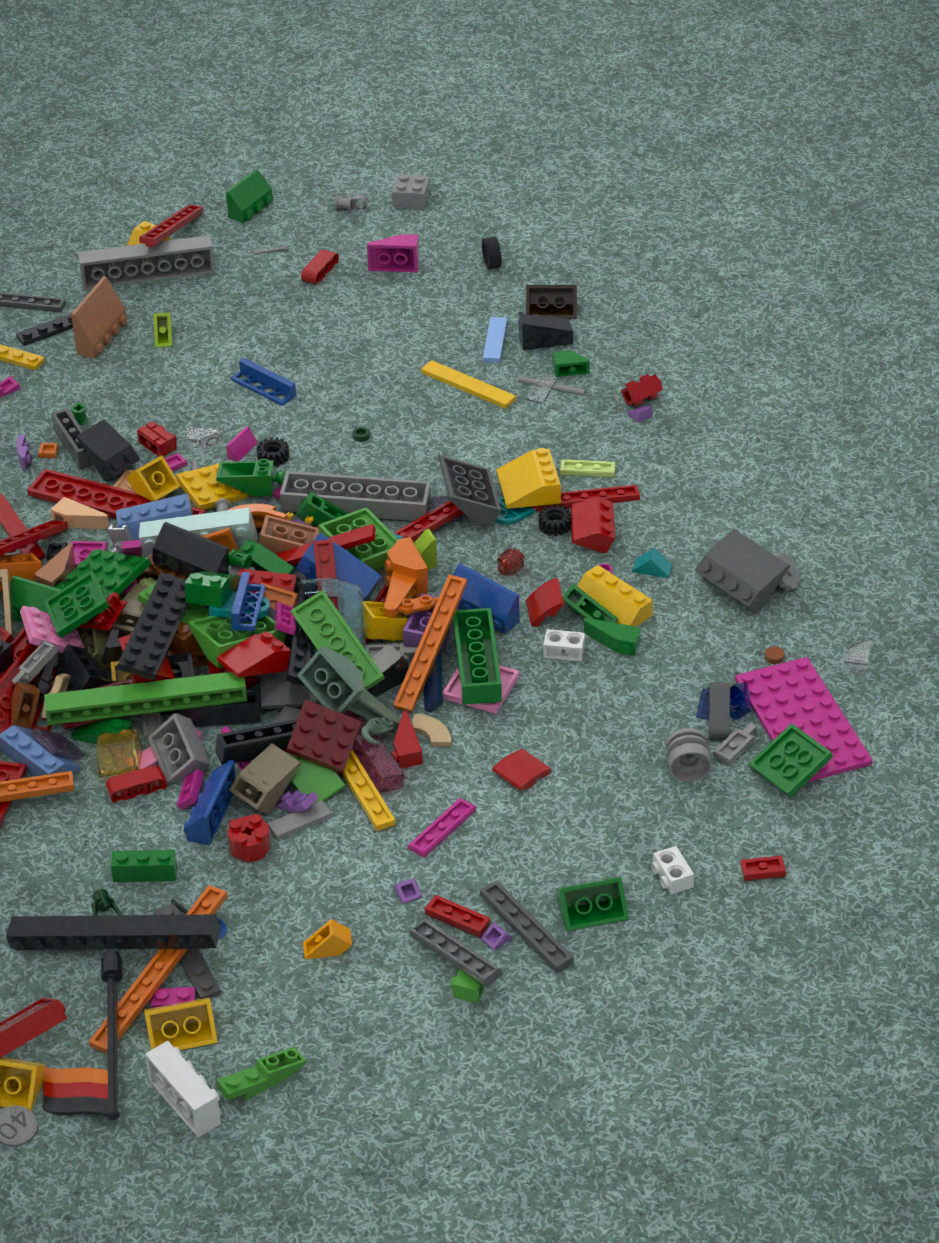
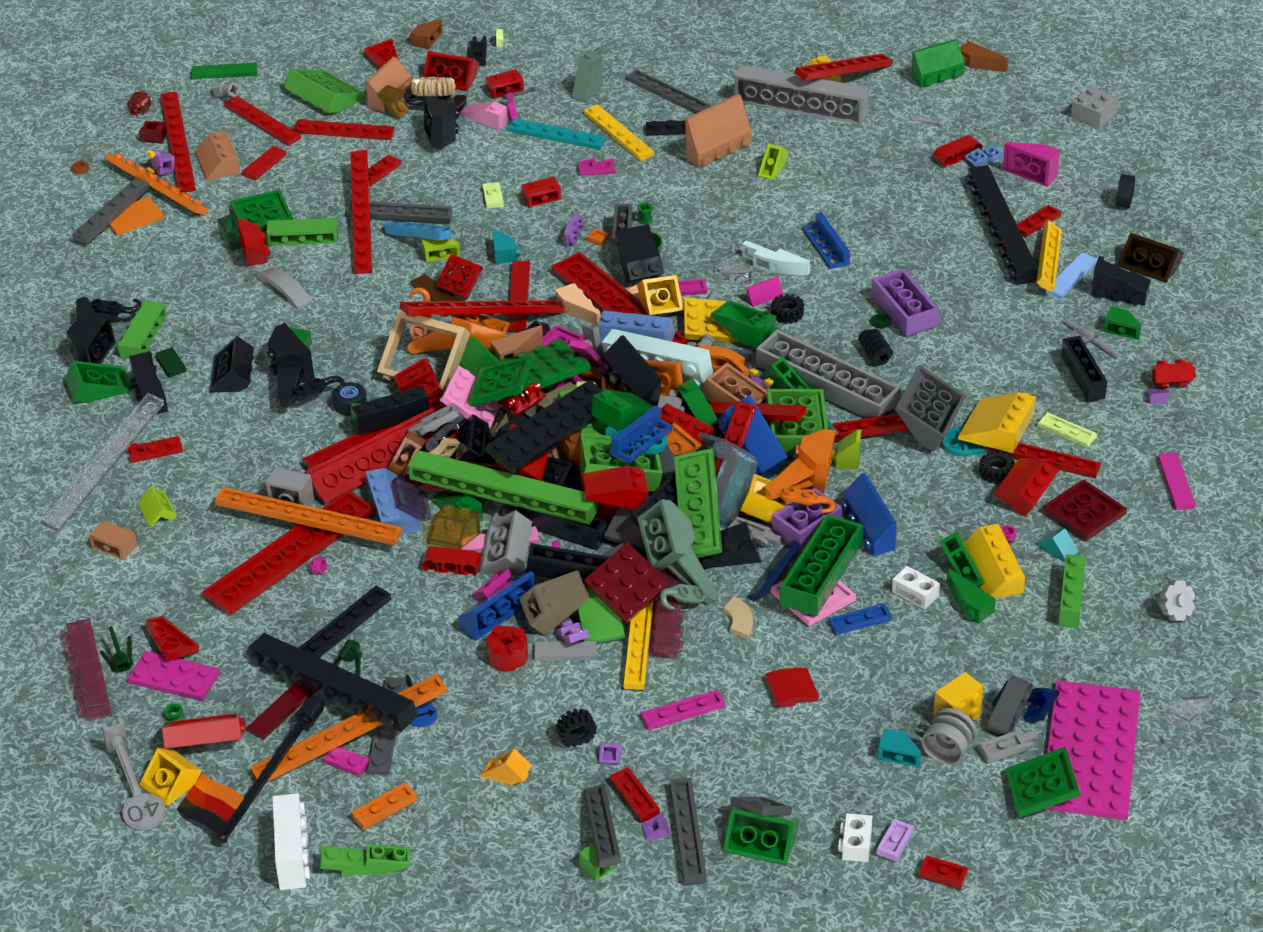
camera: 30 degrees right, 0 degrees up
(10, 838) = (317, 564): none -> dark pink plate
(75, 979) = (279, 711): none -> dark red tile
(78, 875) = (346, 622): none -> black plate
(144, 866) = (404, 635): green brick -> none
(157, 439) = (695, 260): red brick -> none
(182, 1024) = (332, 786): yellow slope -> none
(235, 414) = (777, 262): none -> light aqua slope
(239, 559) = (672, 394): green bush -> none
(240, 1022) = (384, 806): none -> orange plate
(284, 180) = (982, 58): none -> dark orange slope
(284, 619) = (666, 465): dark pink tile -> none
(345, 264) = (984, 157): none -> medium blue slope
(350, 203) = (1031, 99): light grey connector -> none
(366, 880) = (572, 720): none -> black tyre
(374, 409) = (905, 302): none -> medium lavender brick
(376, 456) = (875, 346): none -> black piece
(406, 316) = (1001, 225): none -> black brick
(406, 745) = (705, 620): red slope -> none
(430, 644) = (786, 536): orange plate -> none
(431, 303) = (1037, 220): none -> red tile
(467, 328) = (1049, 256): none -> yellow plate
(468, 384) = (1014, 309): yellow tile -> none
(510, 561) = (925, 490): clear red head -> none
(535, 690) = (860, 619): none -> blue tile
(544, 601) = (925, 539): red slope -> none
(567, 411) = (1084, 368): none -> black brick
(578, 877) = (761, 806): none -> dark grey tile
(652, 528) = (1085, 509): none -> dark red plate
(652, 783) = (898, 748): none -> teal slope
(675, 716) = (961, 694): none -> yellow brick
(694, 597) = (1072, 591): none -> bright green brick
(704, 859) = (895, 840): none -> lavender plate
(707, 477) = (1176, 481): none -> dark pink tile
(743, 569) = (1132, 582): dark grey slope -> none
(774, 655) = (1111, 676): dark orange tile -> none

